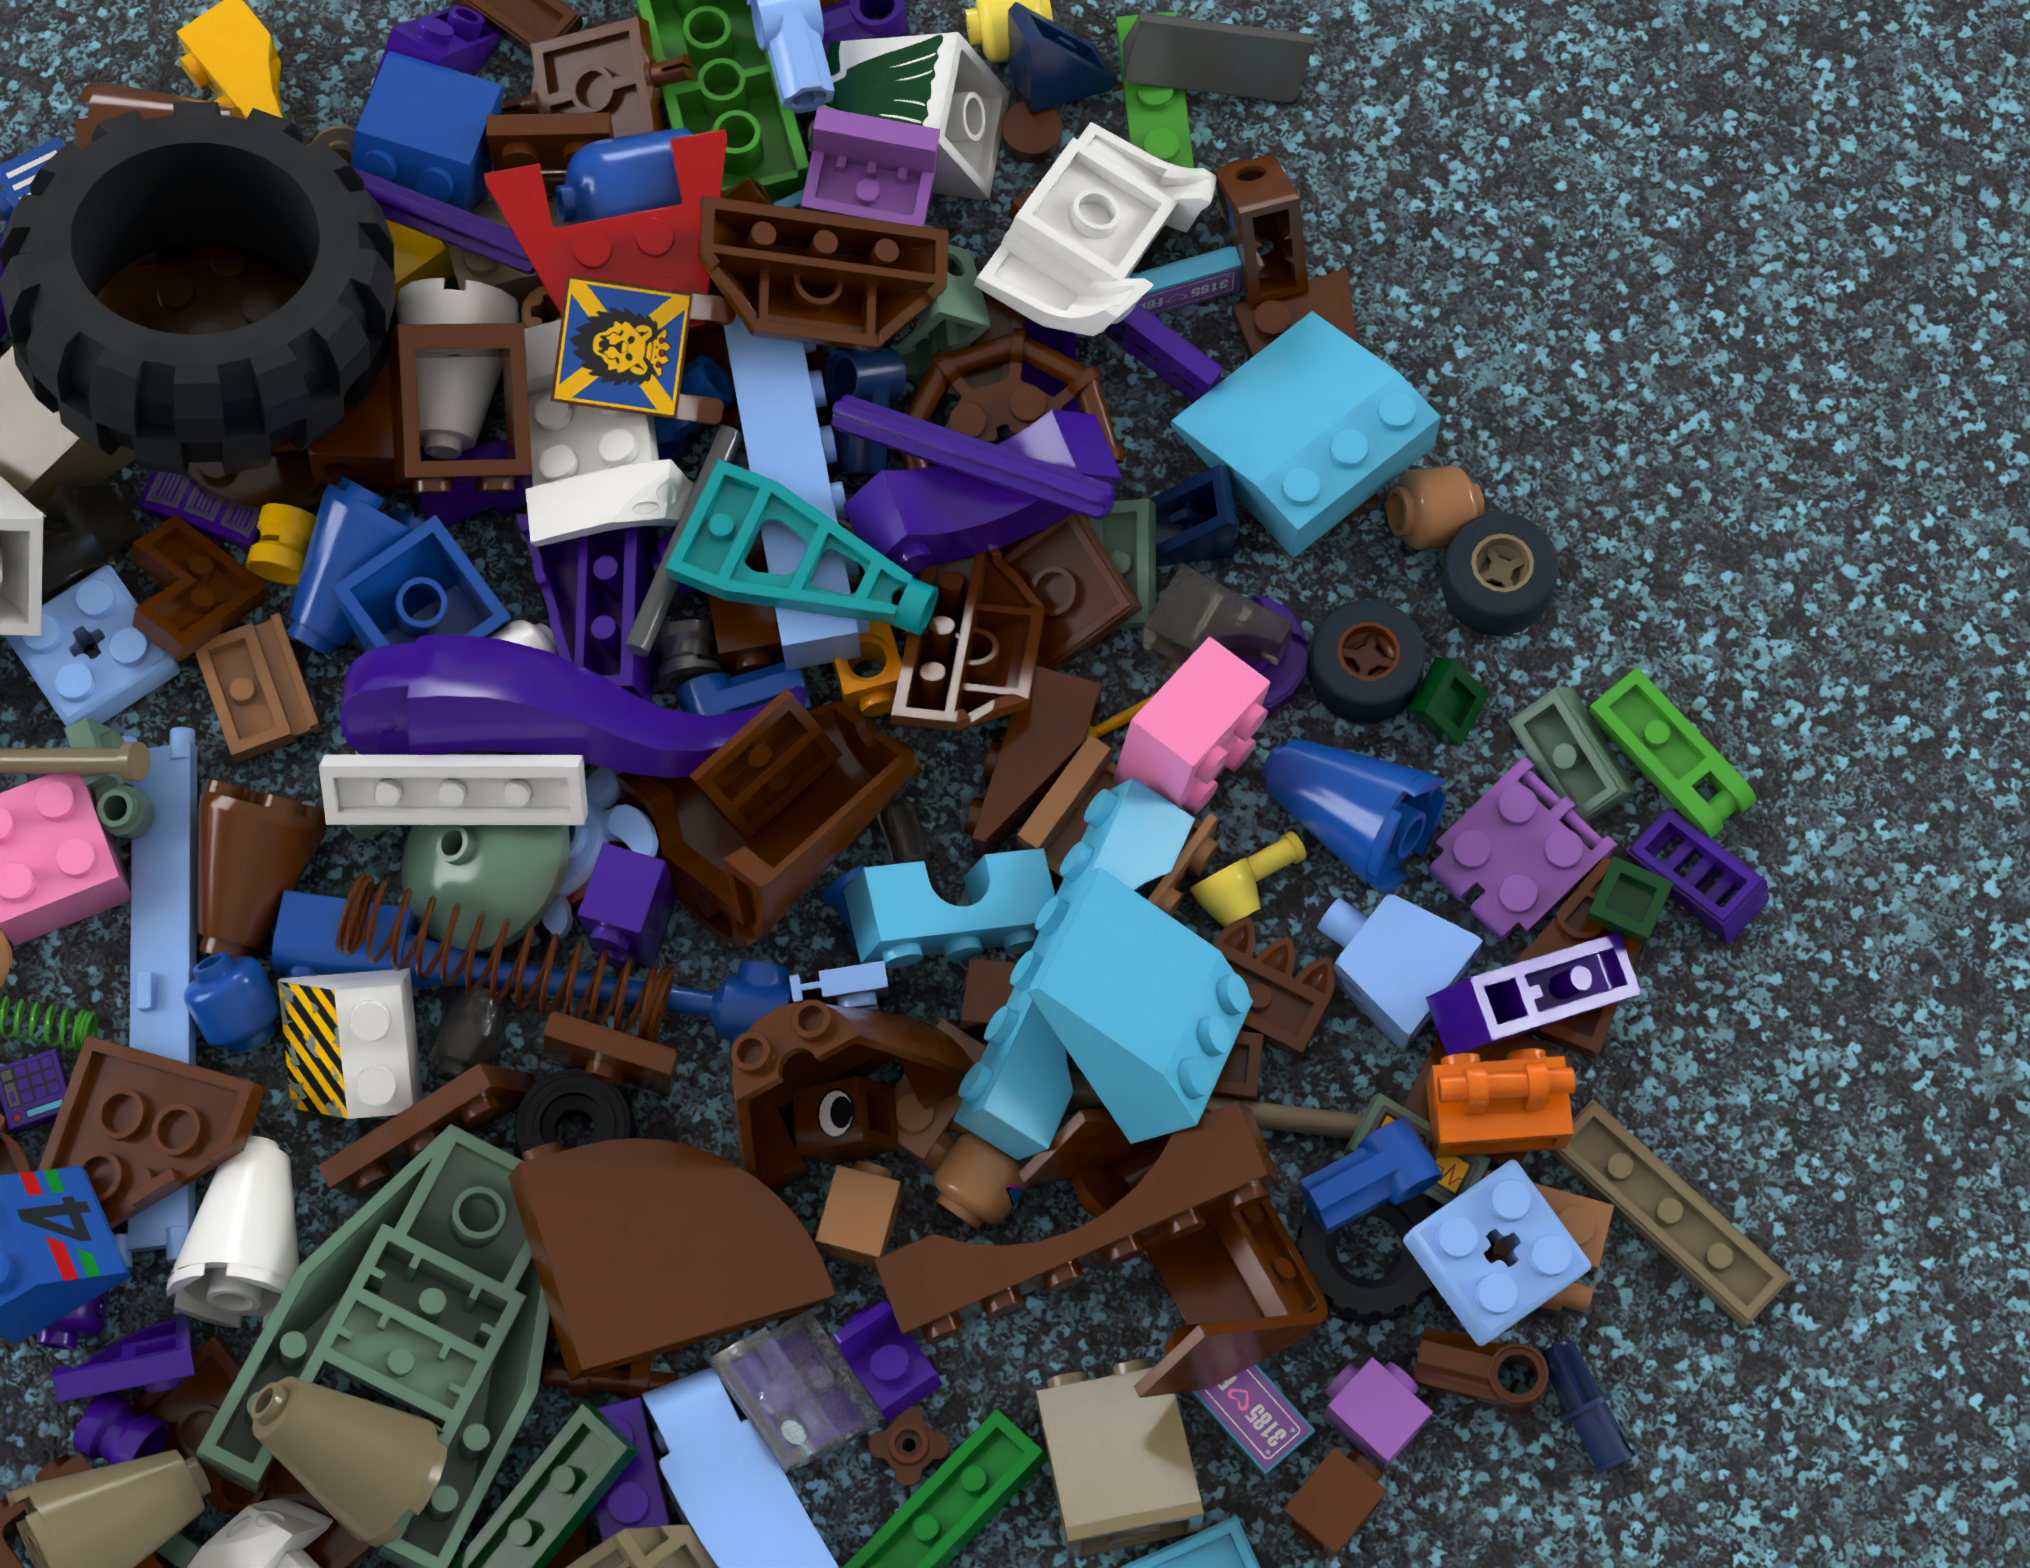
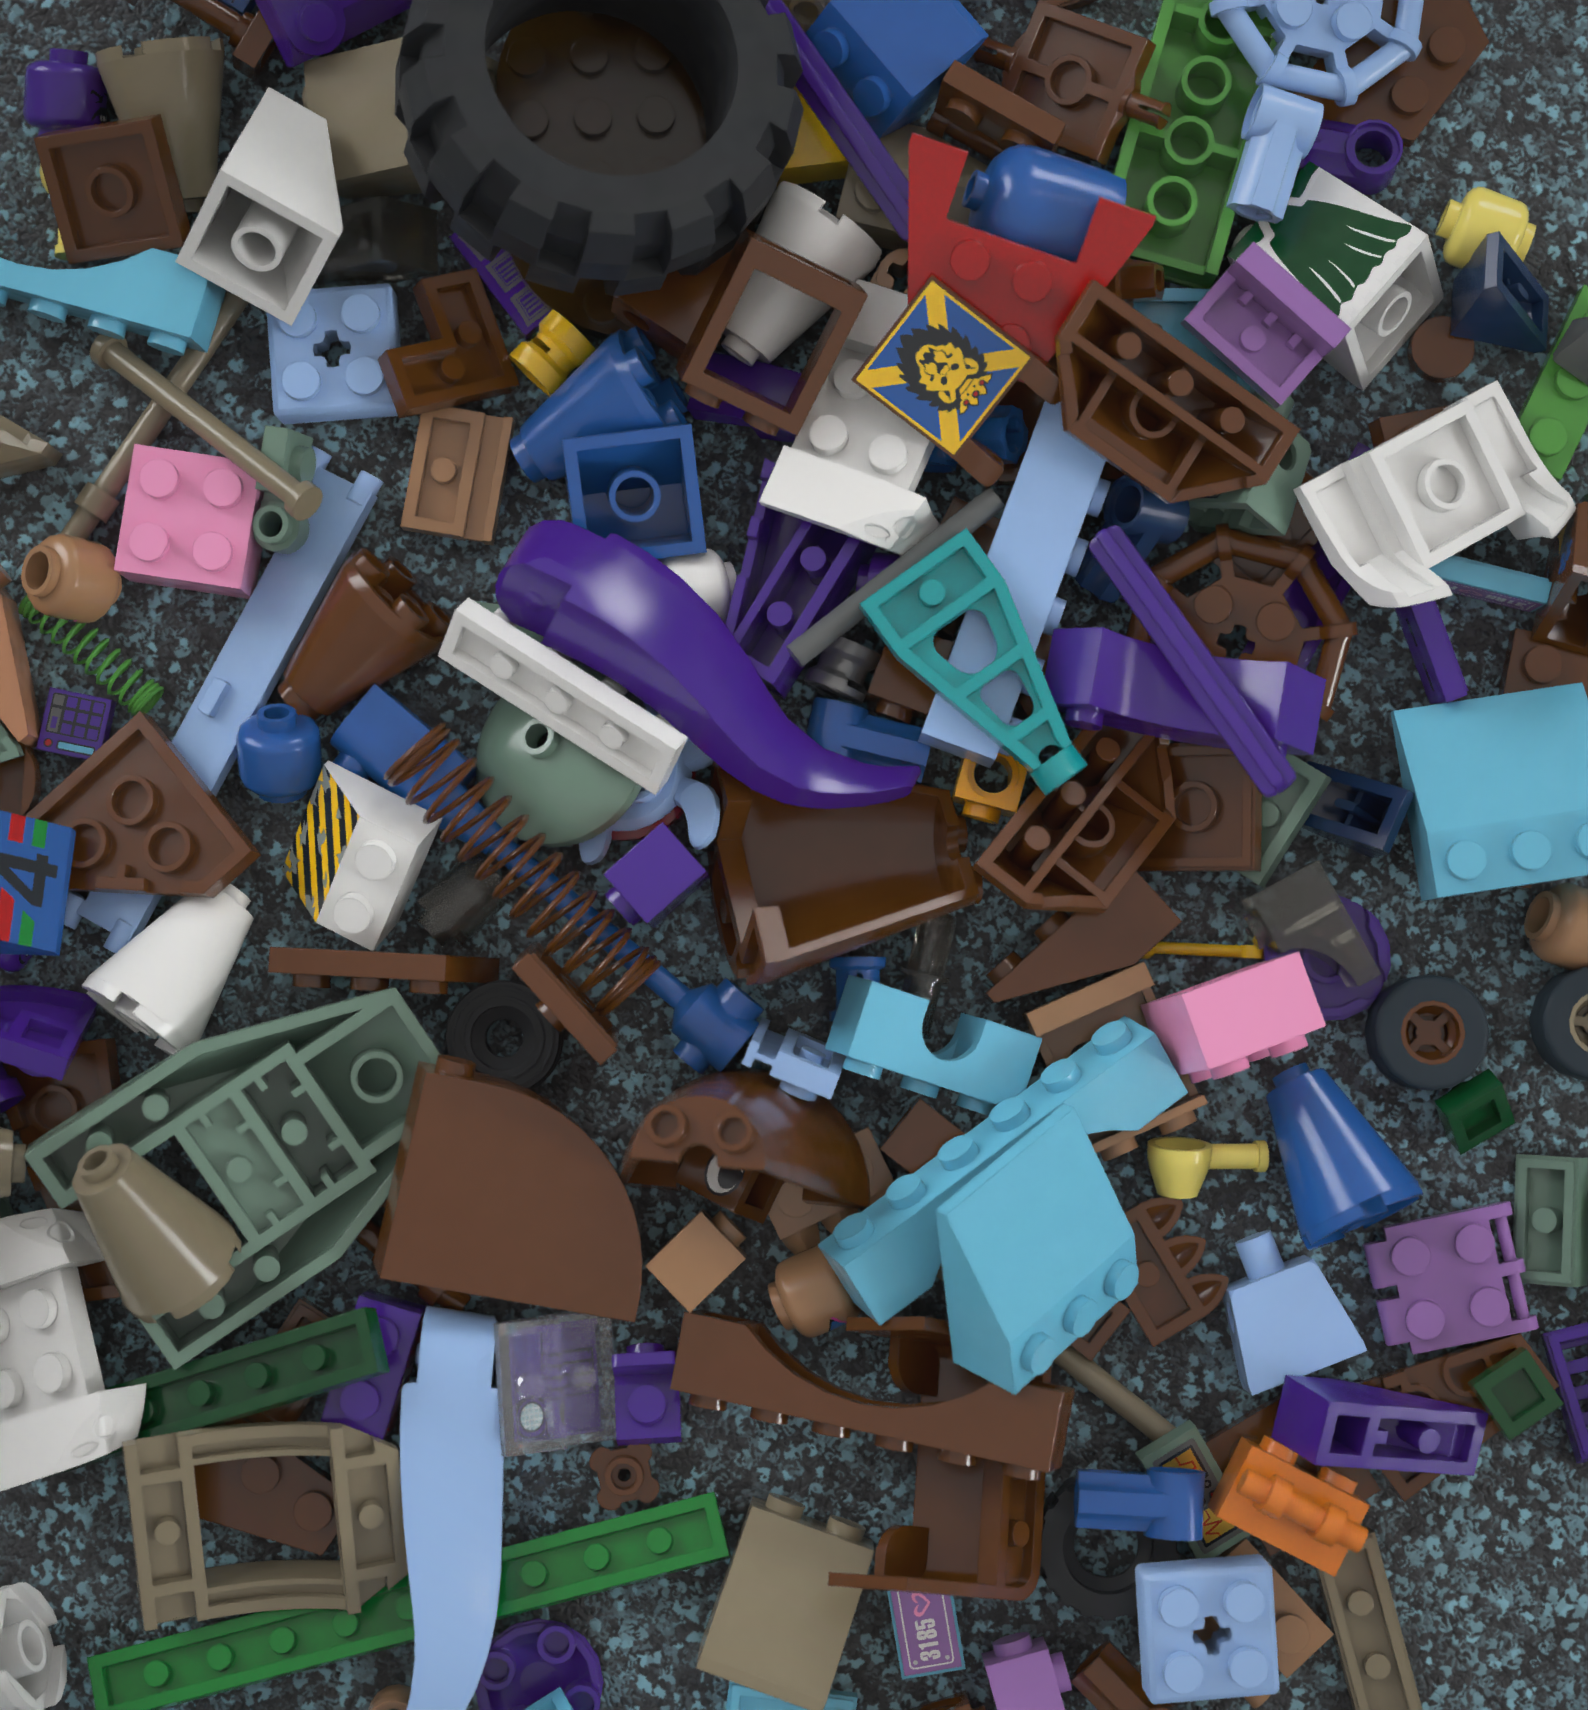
camera: 30 degrees right, 15 degrees up
(766, 764) = (847, 826): reddish brown slope -> none

